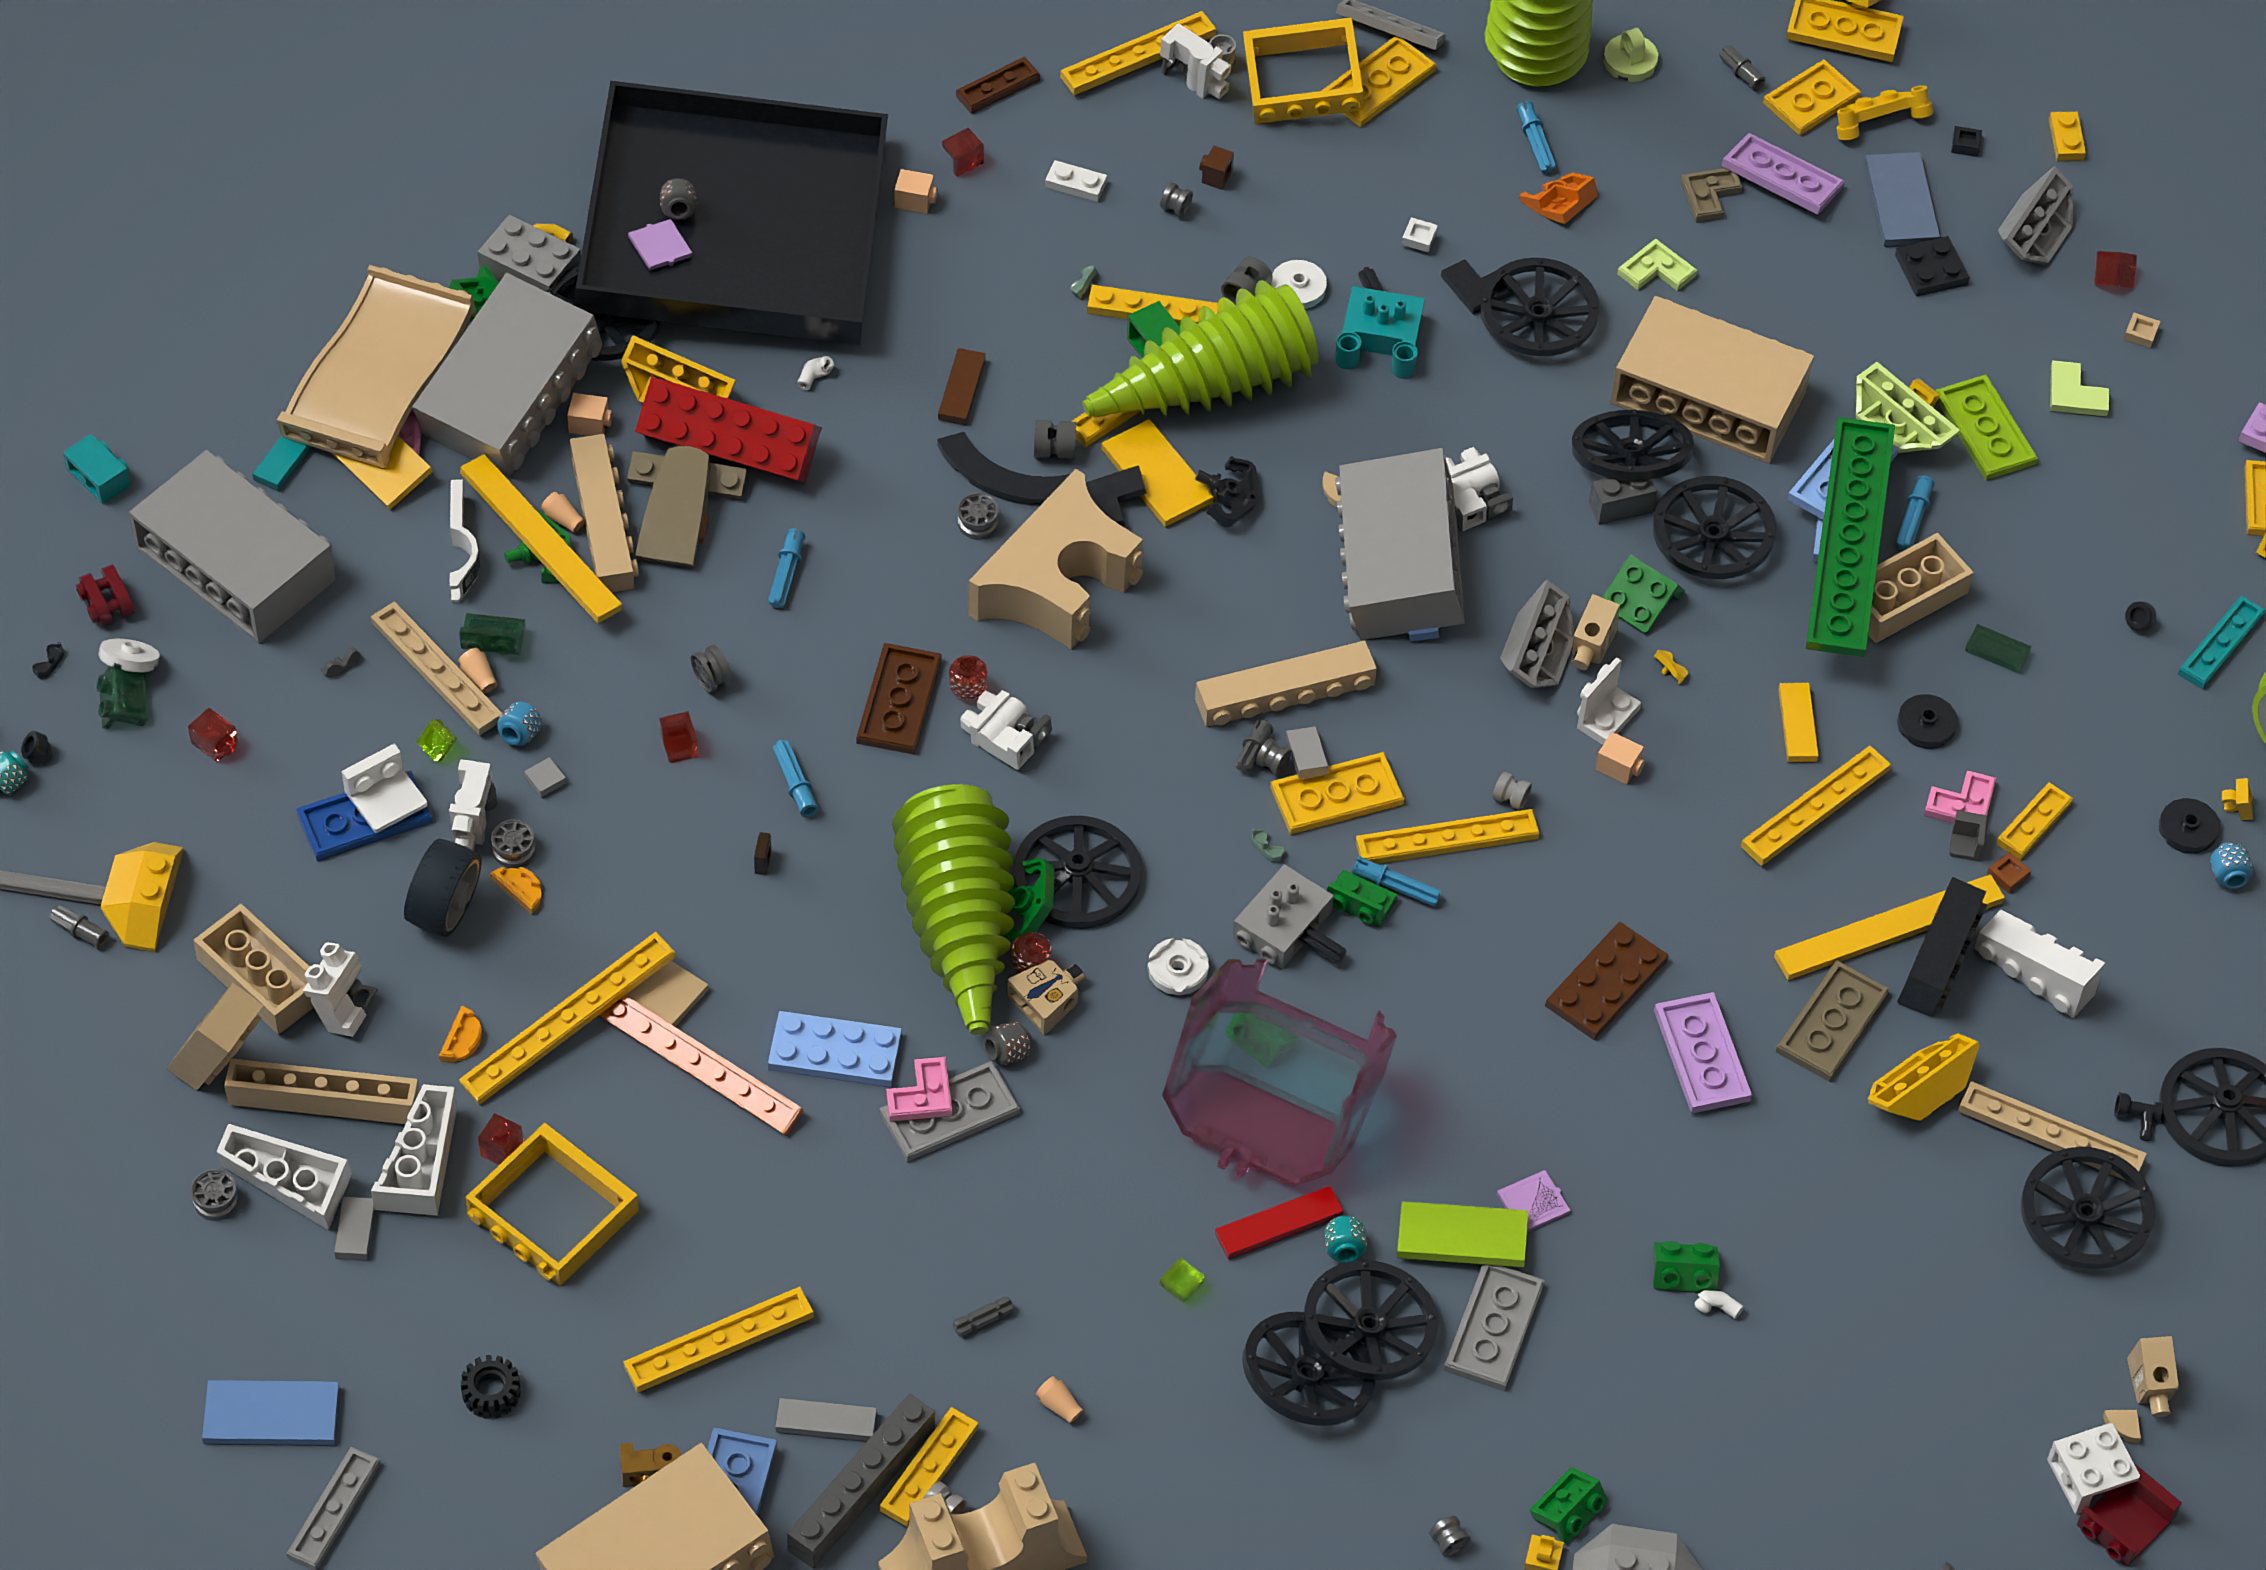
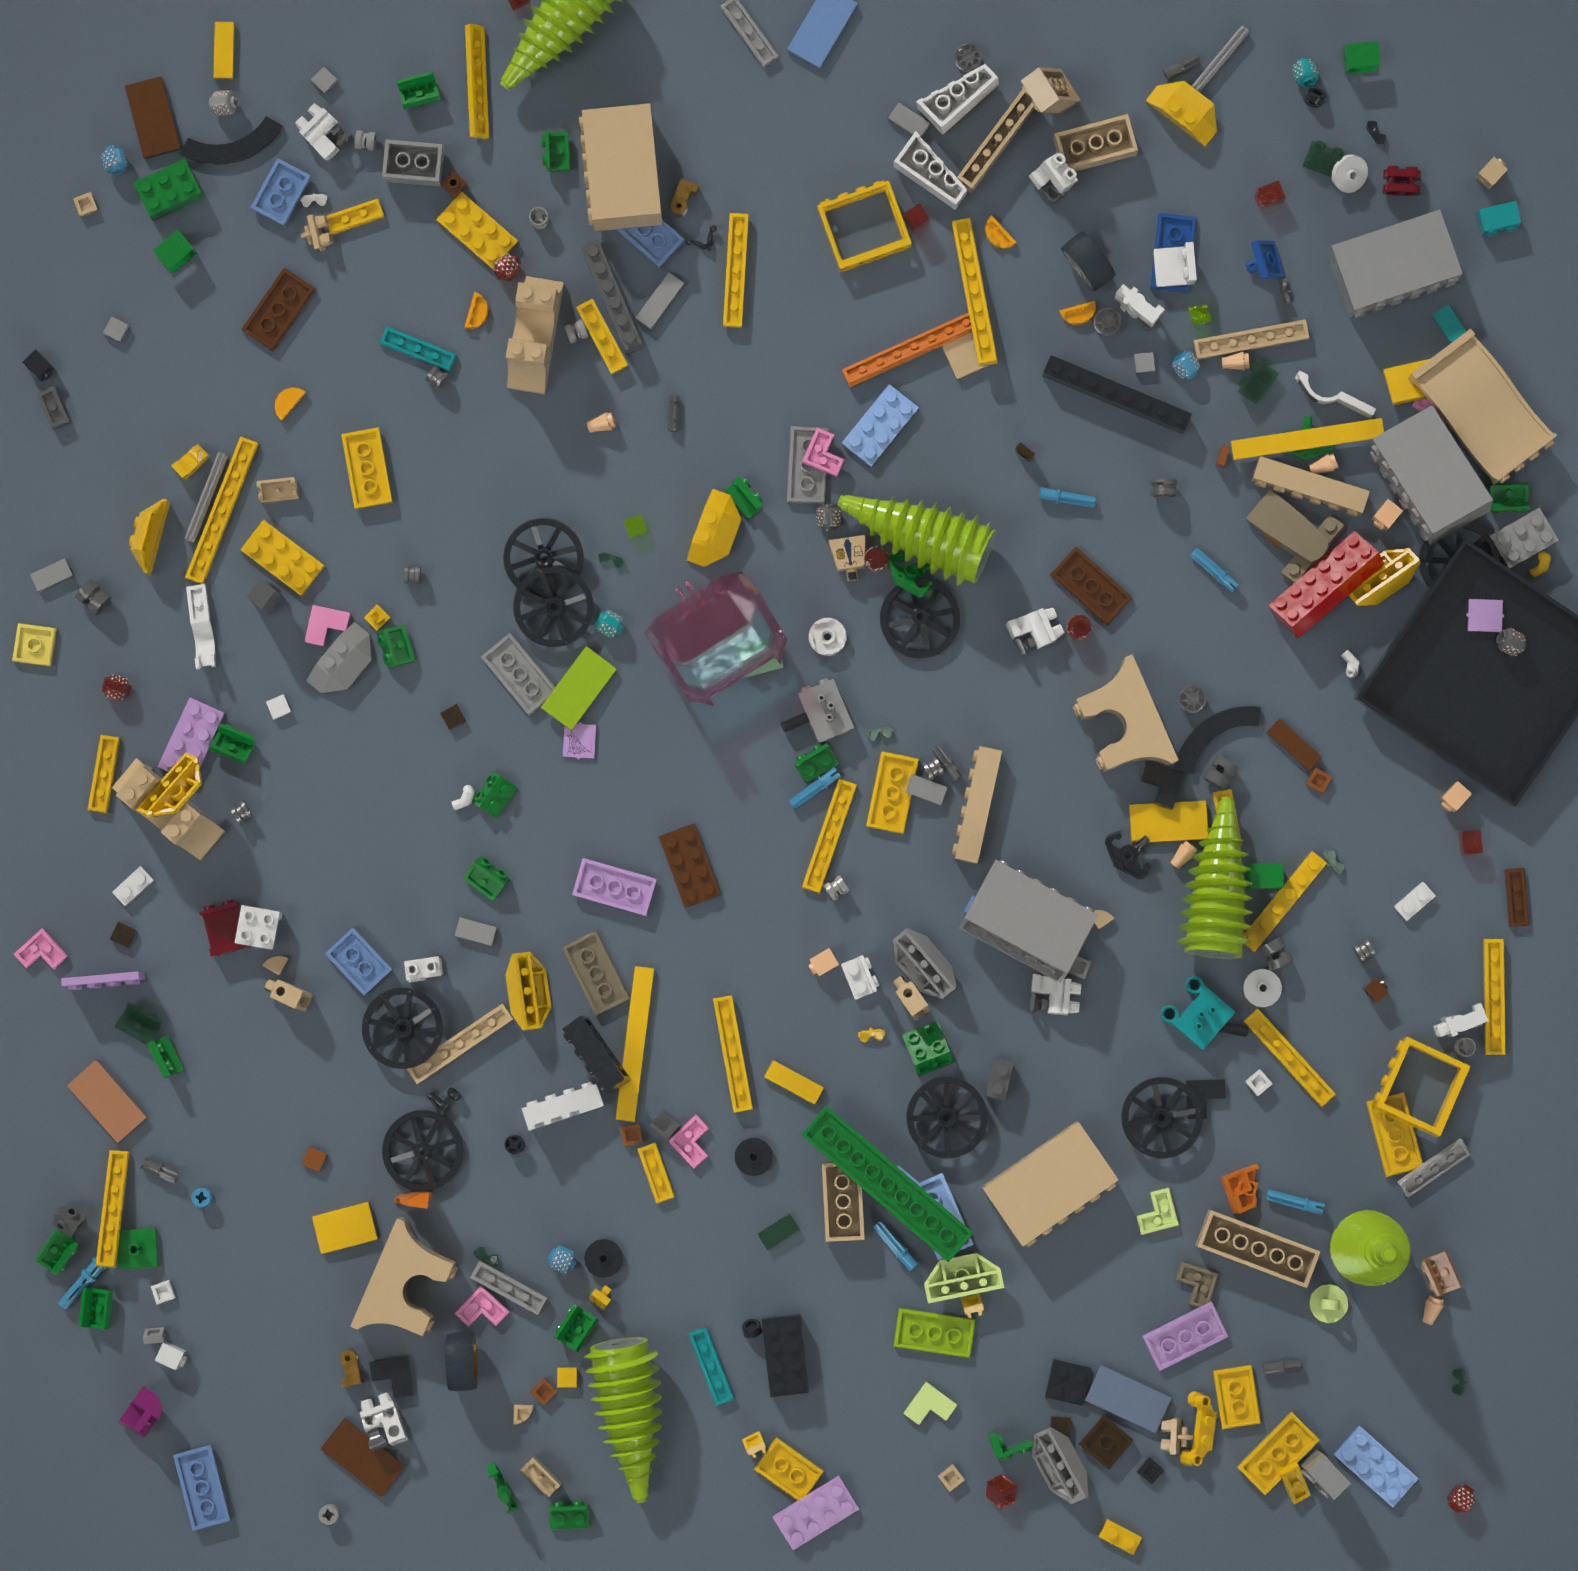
camera: 125 degrees right, 30 degrees up
(34, 502) = (1492, 172): none -> tan brick
(314, 693) = (1266, 260): none -> blue tile
(490, 1370) = (770, 152): black tyre -> none
(613, 783) = (1116, 394): none -> black brick
(623, 626) = (1222, 456): none -> dark orange tile
(673, 1402) = (706, 245): none -> black piece
(678, 737) = (1128, 448): clear red panel -> none
(991, 340) = (1318, 780): none -> dark orange tile
(1050, 1159) = (744, 498): none -> green bracket
(1120, 1174) = (715, 530): none -> yellow wedge
(1189, 435) = (1183, 855): none -> light nougat cone
(1246, 1283) = (605, 557): none -> clear green piece
(1278, 1222) = (642, 597): red tile -> none
(1364, 221) = (1289, 1057): none -> yellow tile
(1615, 1378) = (453, 716): none -> dark brown tile
(1623, 143) = (1257, 1248): none -> tan brick
(1632, 451) = (1031, 1108): black wheel -> none
(1807, 1214) = (486, 878): none -> green bracket
(1888, 1194) = (475, 931): none -> light grey tile
(1905, 127) = (1177, 1439): none -> tan hips
(1970, 195) = (1106, 1441): none -> dark brown plate
(1990, 250) = (1061, 1424): none -> dark brown tile
(1997, 1211) = (424, 968): none -> white hips
(2040, 1317) = (358, 961): none -> medium blue plate
(2059, 274) = (1006, 1453): none -> green bracket
(2126, 992) = (514, 1146): none -> black wheel
(2143, 562) = (785, 1355): none -> black brick

